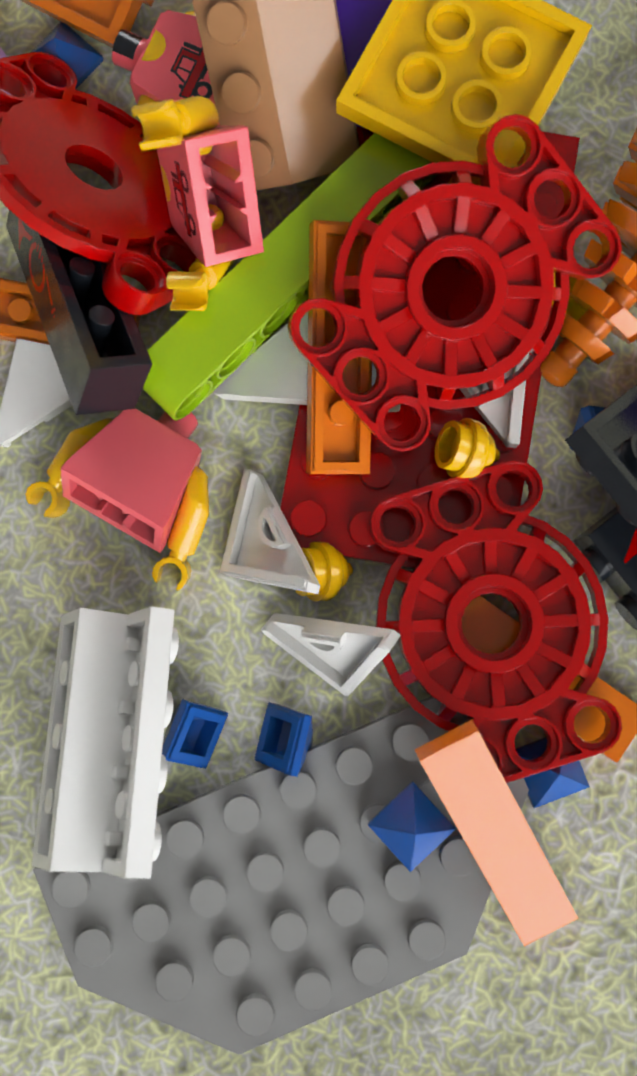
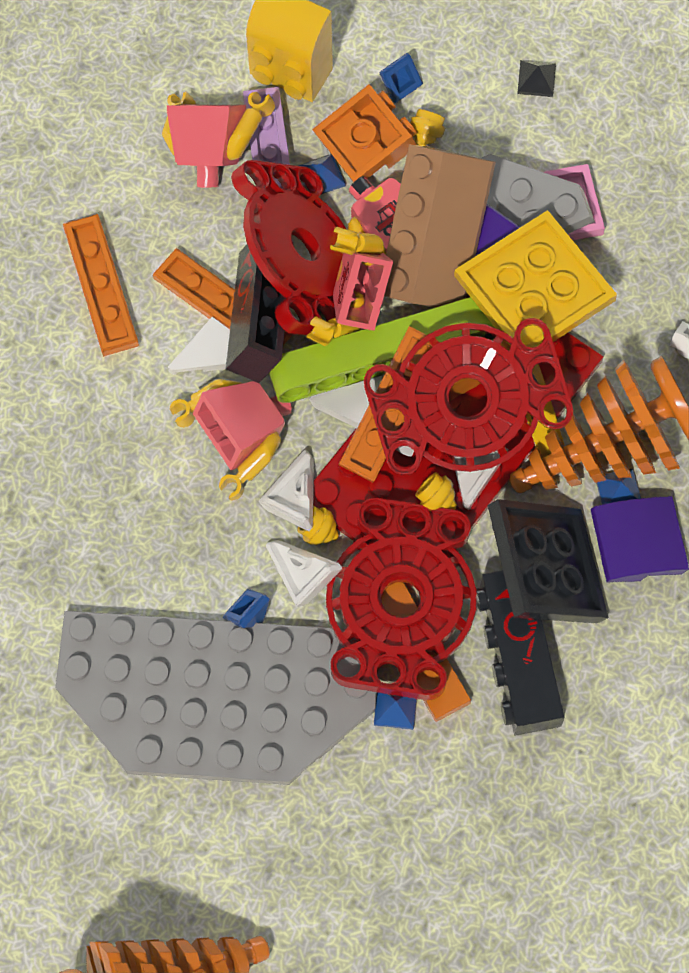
camera: 30 degrees right, 15 degrees down
(106, 743) = (147, 553): white brick -> none
(193, 733) = (196, 581): blue slope -> none
(411, 826) = (294, 688): blue slope -> none
(496, 832) = (341, 713): tile -> none

